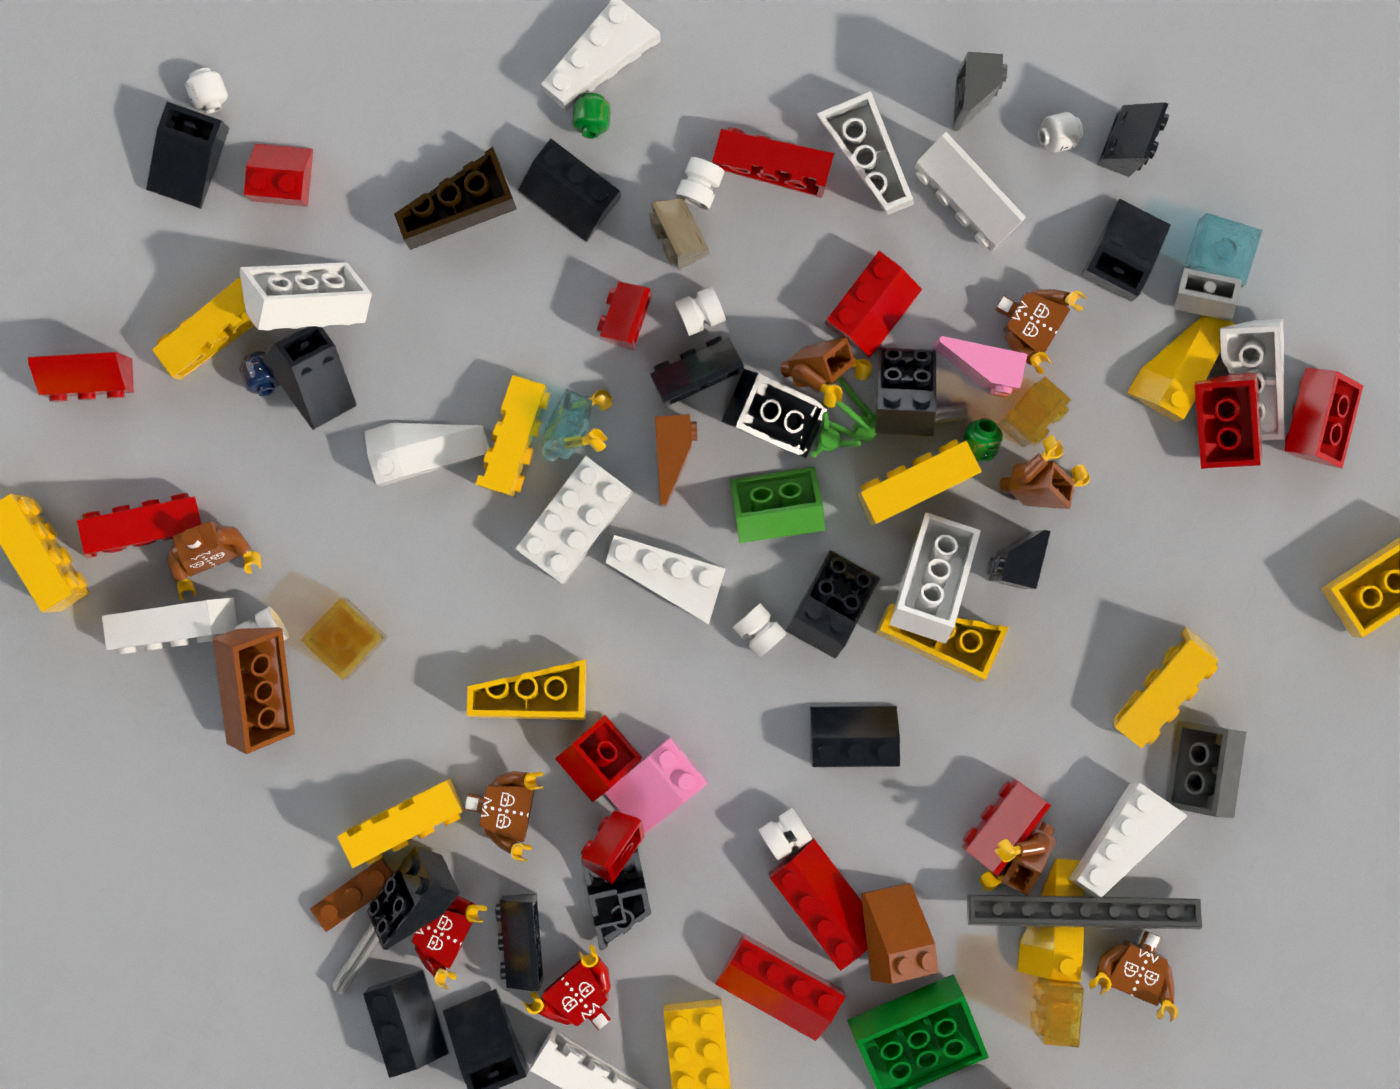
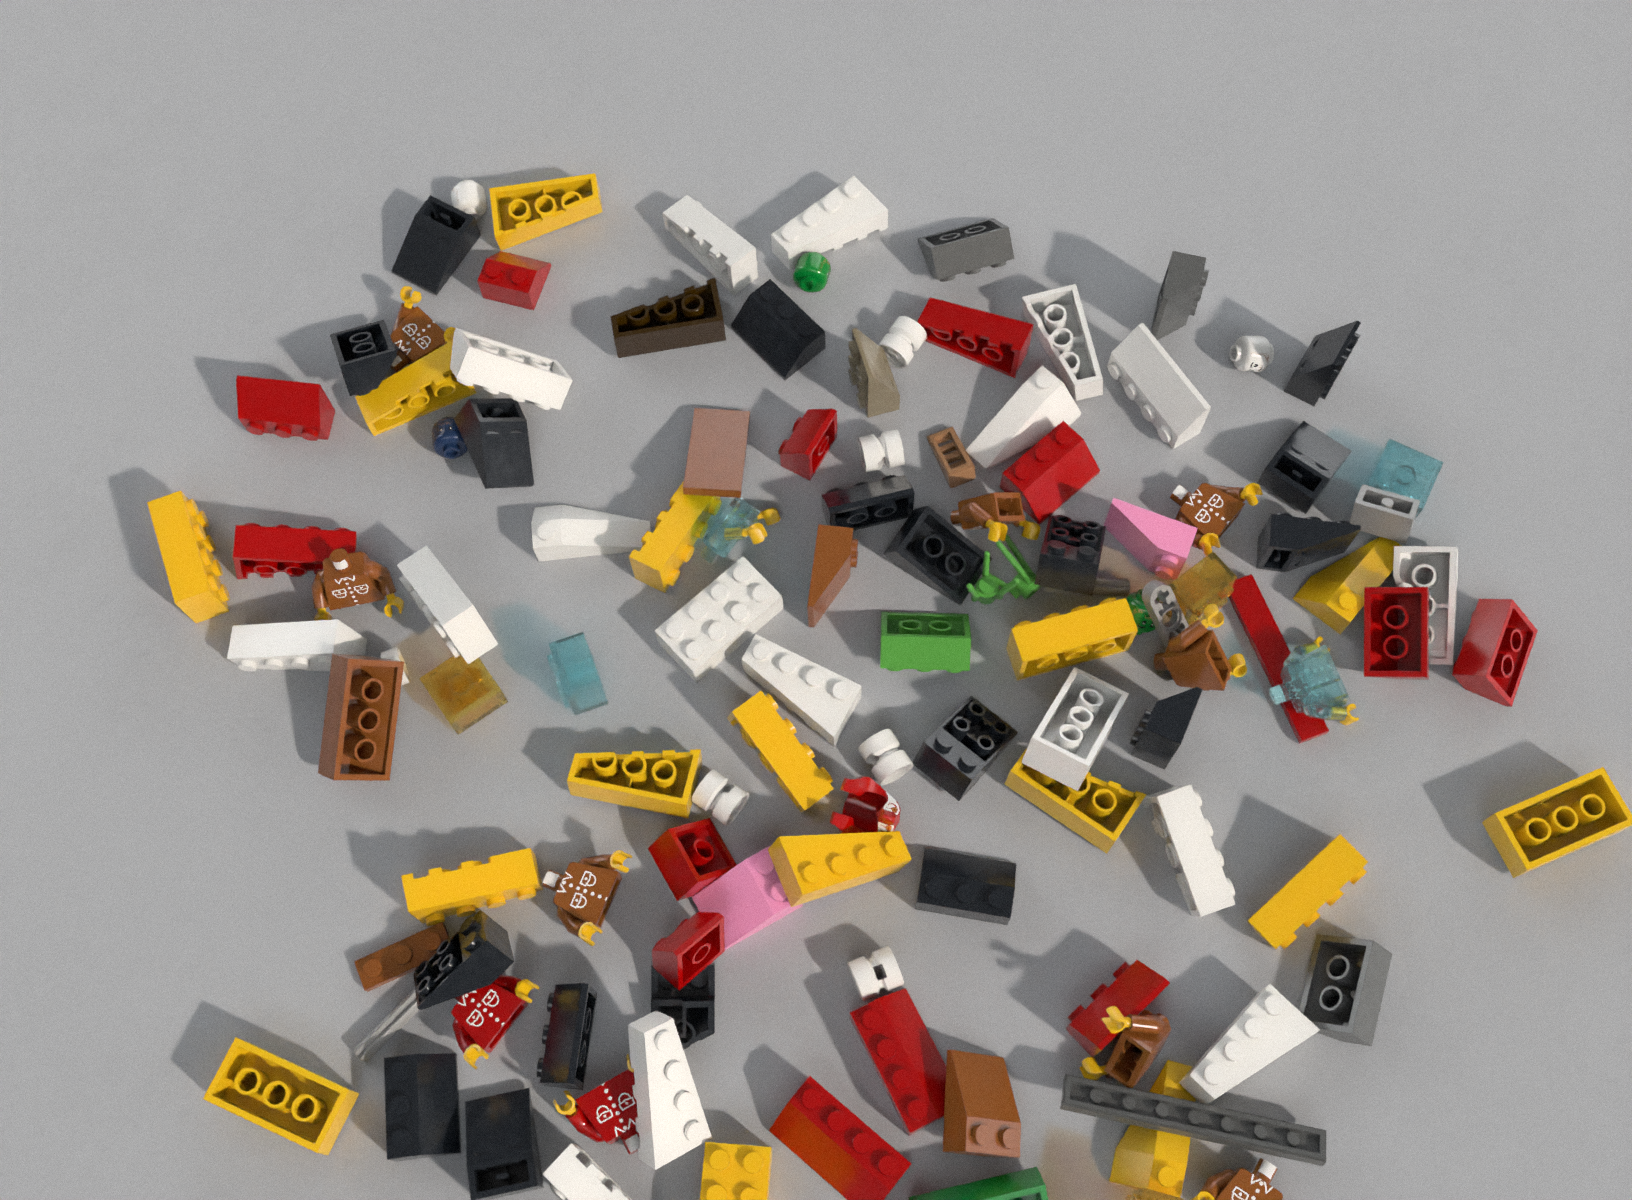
camera: 15 degrees right, 20 degrees down
(149, 305) = (364, 356): none -> black slope
(197, 266) = (415, 332): none -> dark orange torso
(279, 1040) = (281, 1096): none -> yellow brick
(286, 89) = (541, 207): none -> yellow wedge
(307, 565) = (445, 606): none -> white brick
(450, 604) = (576, 674): none -> clear light blue brick
(478, 98) = (713, 244): none -> white wedge
(535, 344) = (716, 453): none -> tile
(611, 697) = (720, 797): none -> white wheel
(622, 984) = (666, 1097): none -> white wedge
(658, 643) = (781, 750): none -> yellow wedge
(725, 750) = (835, 862): none -> yellow wedge
(748, 56) = (967, 249): none -> dark grey slope
(751, 687) = (866, 808): none -> red piece
(785, 319) = (958, 472): none -> medium nougat slope
(844, 245) = (1024, 419): none -> white wedge
(999, 443) = (1158, 610): none -> light grey beam
(1055, 666) = (1191, 849): none -> white wedge
(1114, 343) = (1297, 542): none -> black slope
(1116, 460) = (1270, 650): none -> red tile
(1153, 485) = (1313, 684): none -> clear light blue torso

